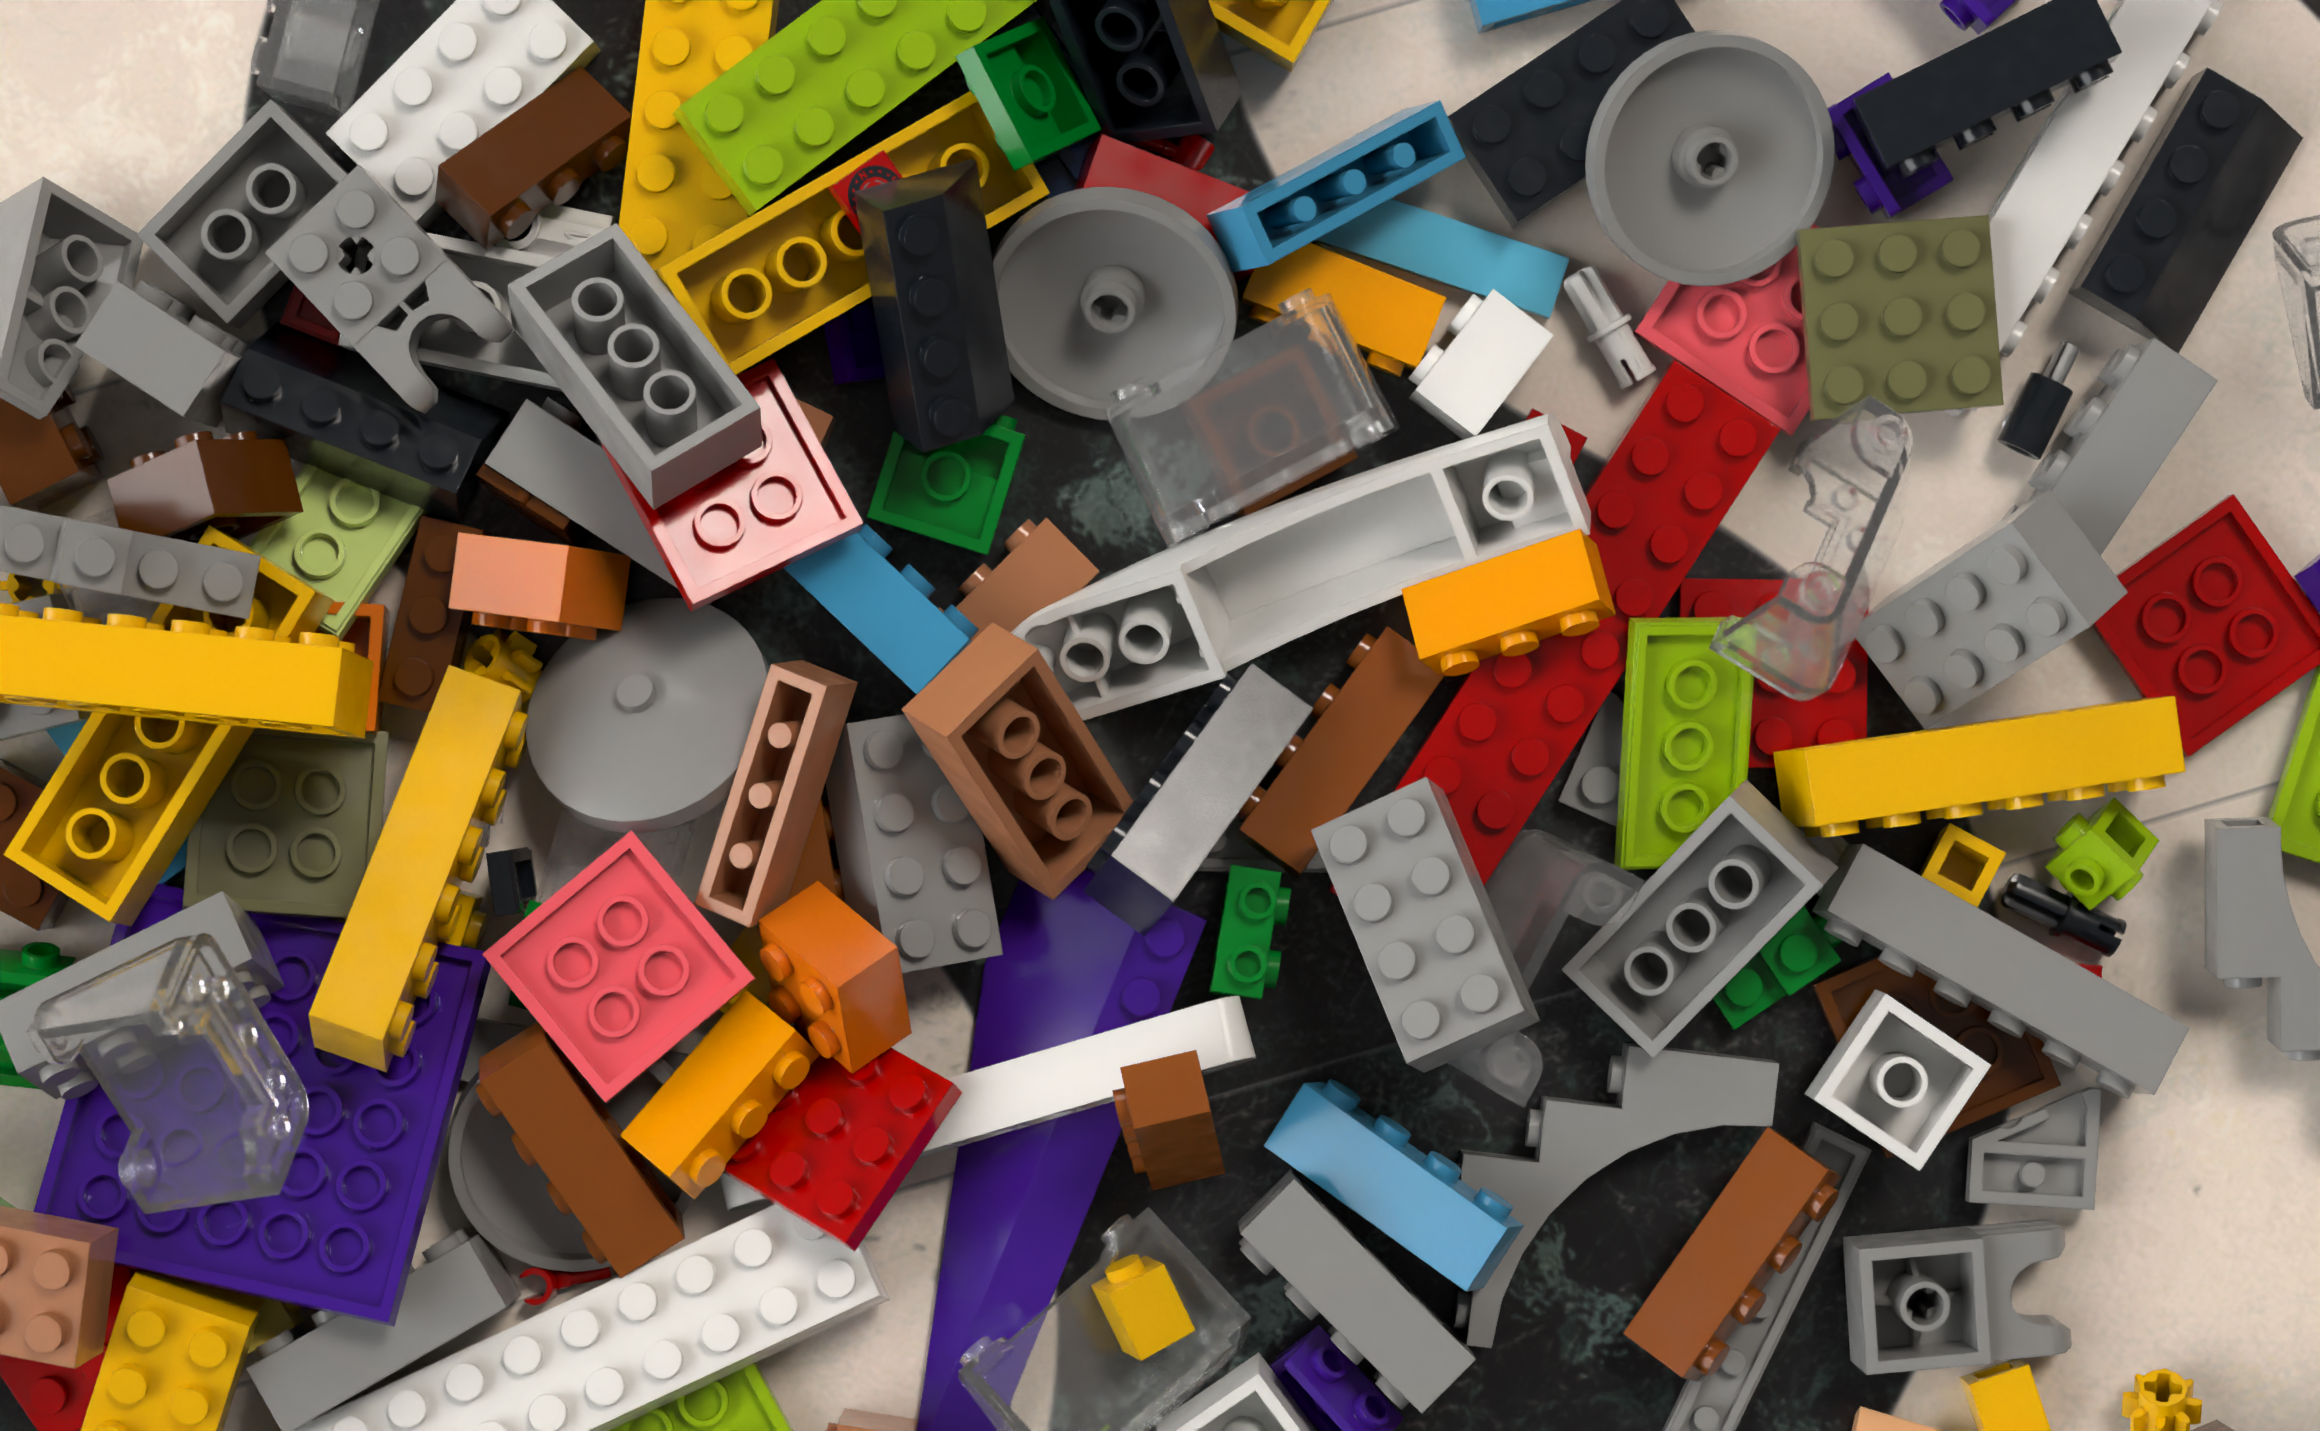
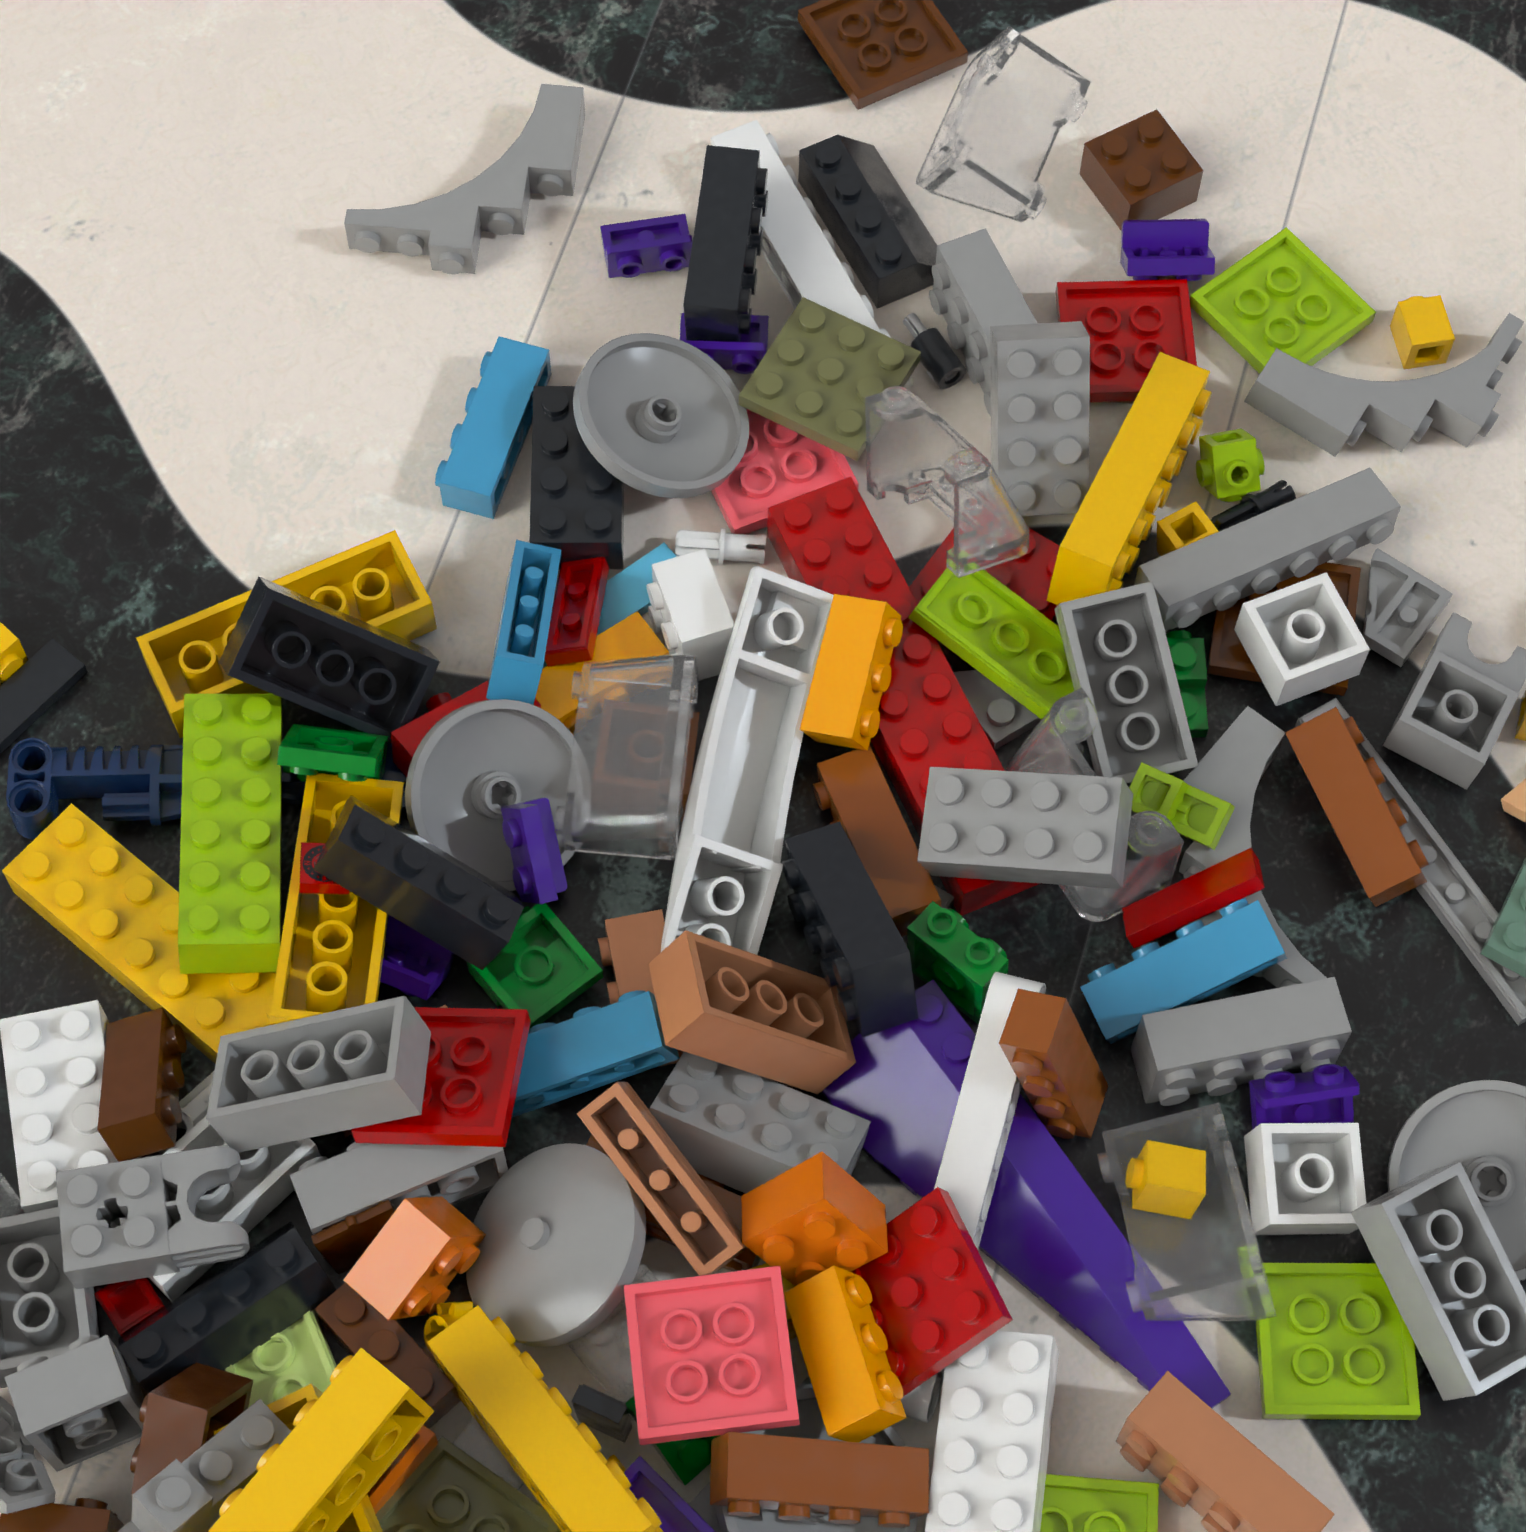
camera: 55 degrees left, 25 degrees down
(1072, 388) = (534, 851): none -> dark purple bracket
(1406, 226) = (576, 611): none -> red tile
(1493, 1142) = (1193, 898): none -> red tile
(1590, 1063) = (1188, 808): none -> lime slope

